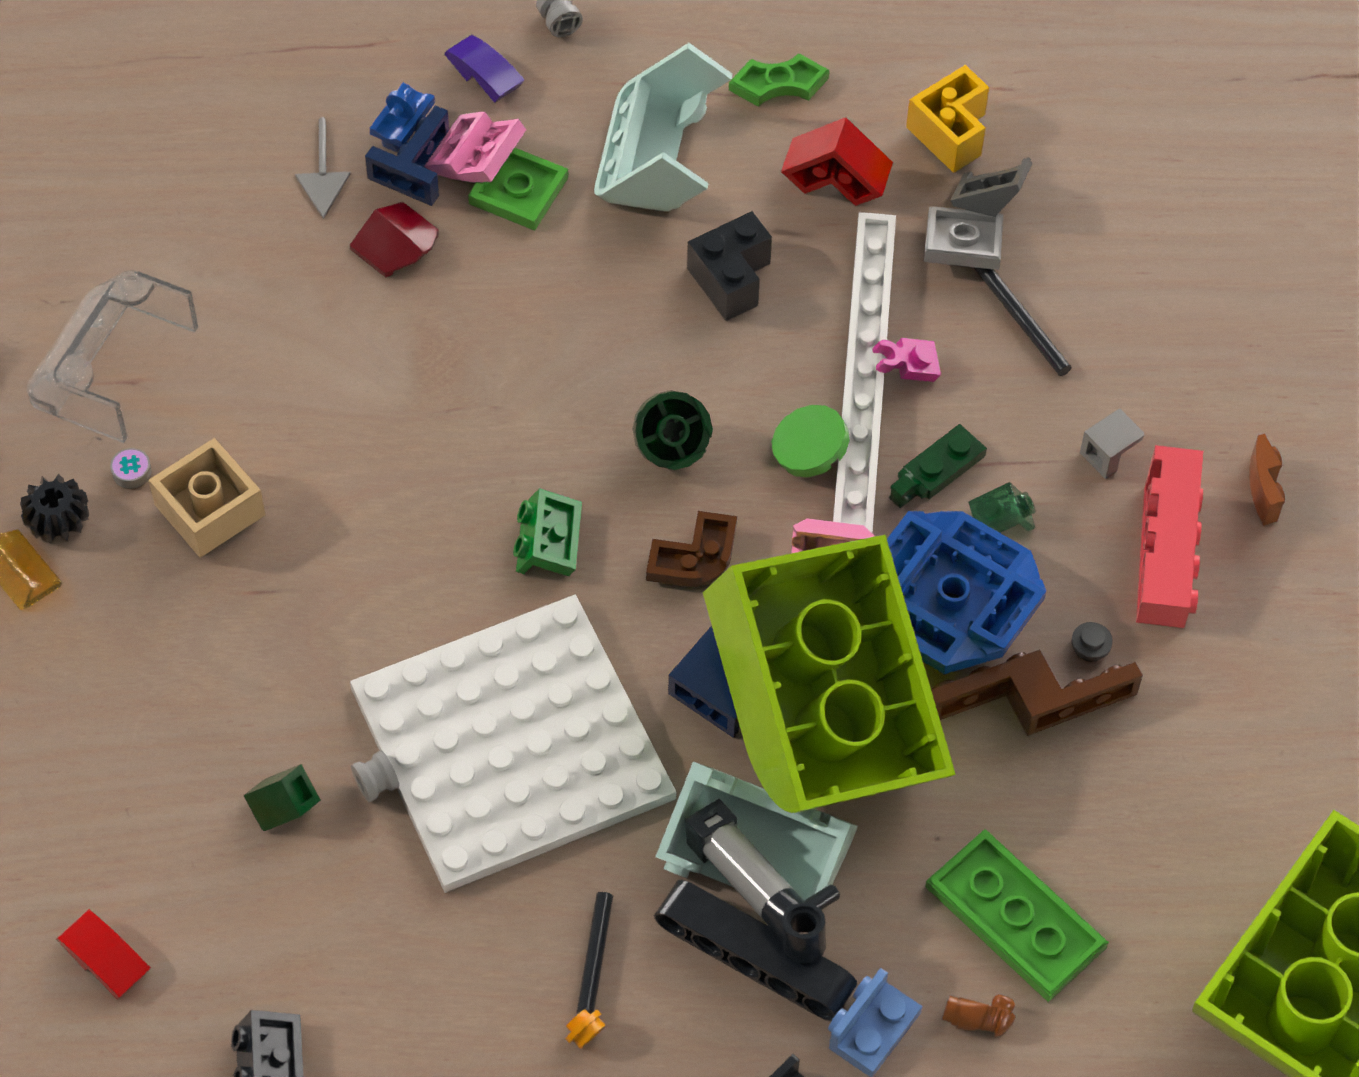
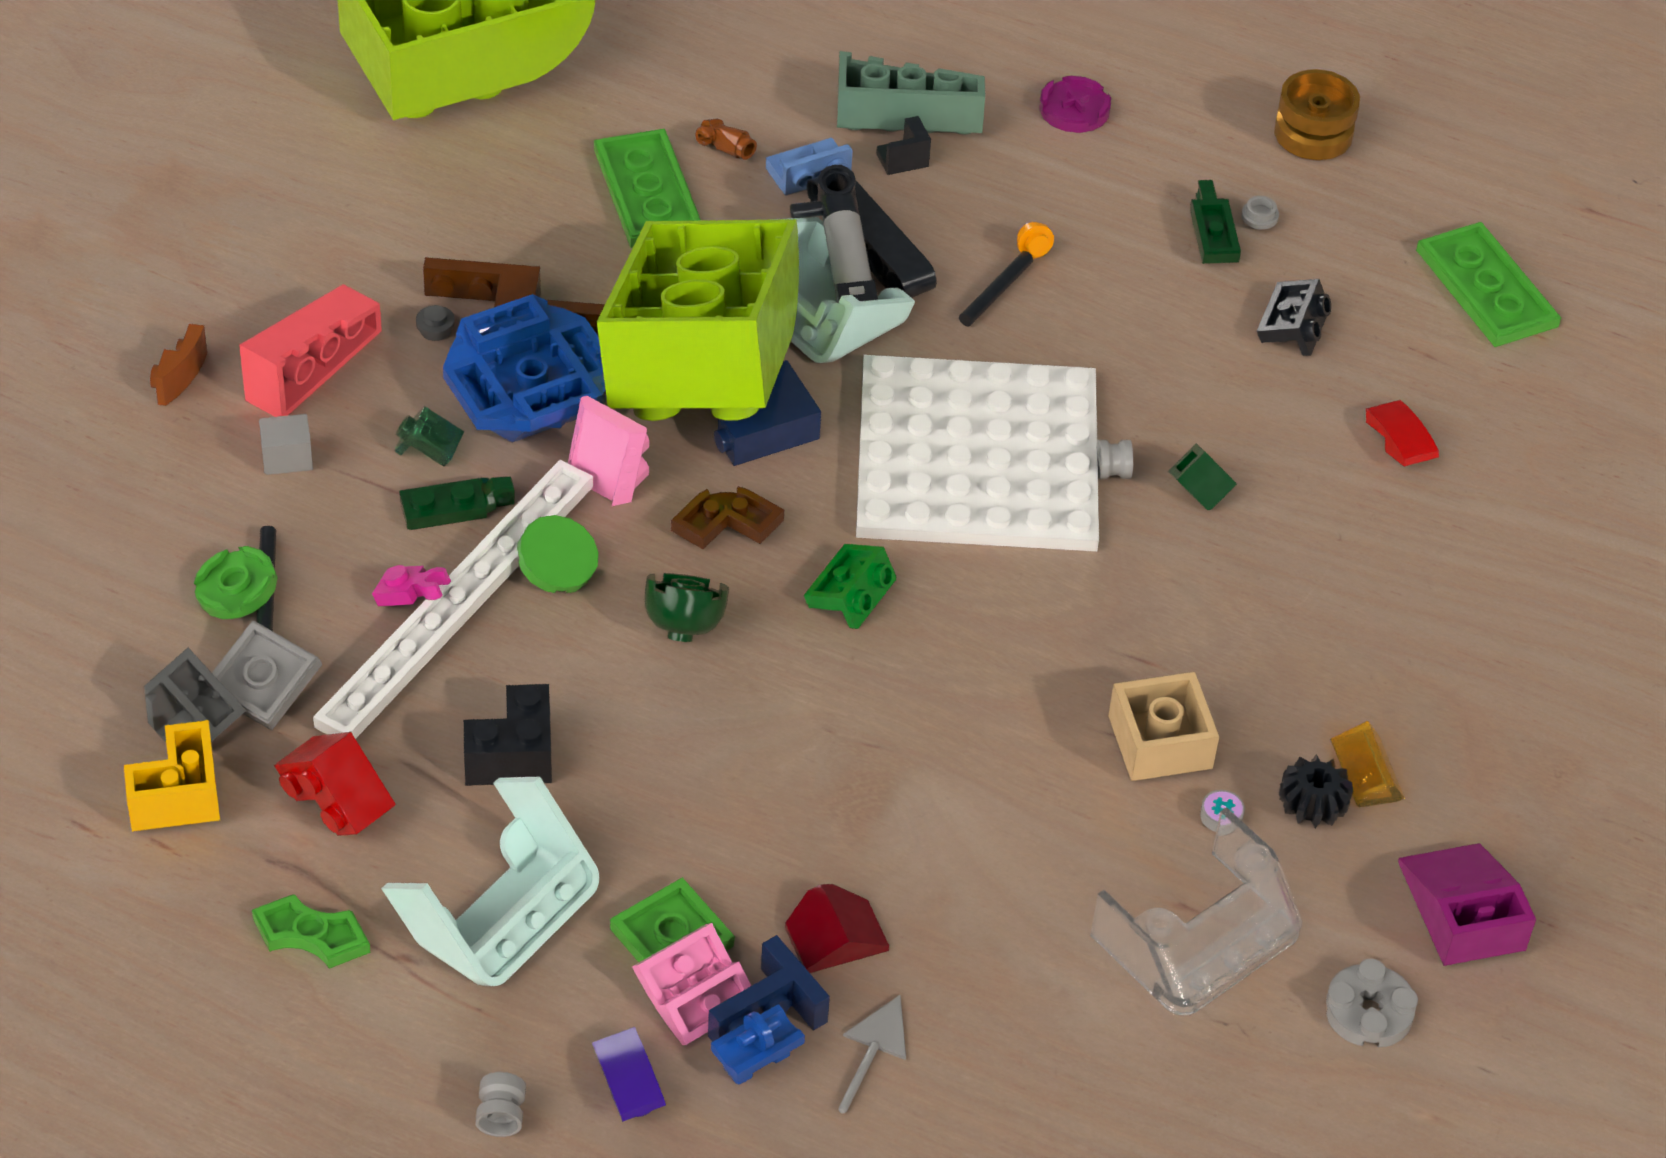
camera: 155 degrees left, 10 degrees down
(1048, 305) = (235, 583): none -> bright green tile

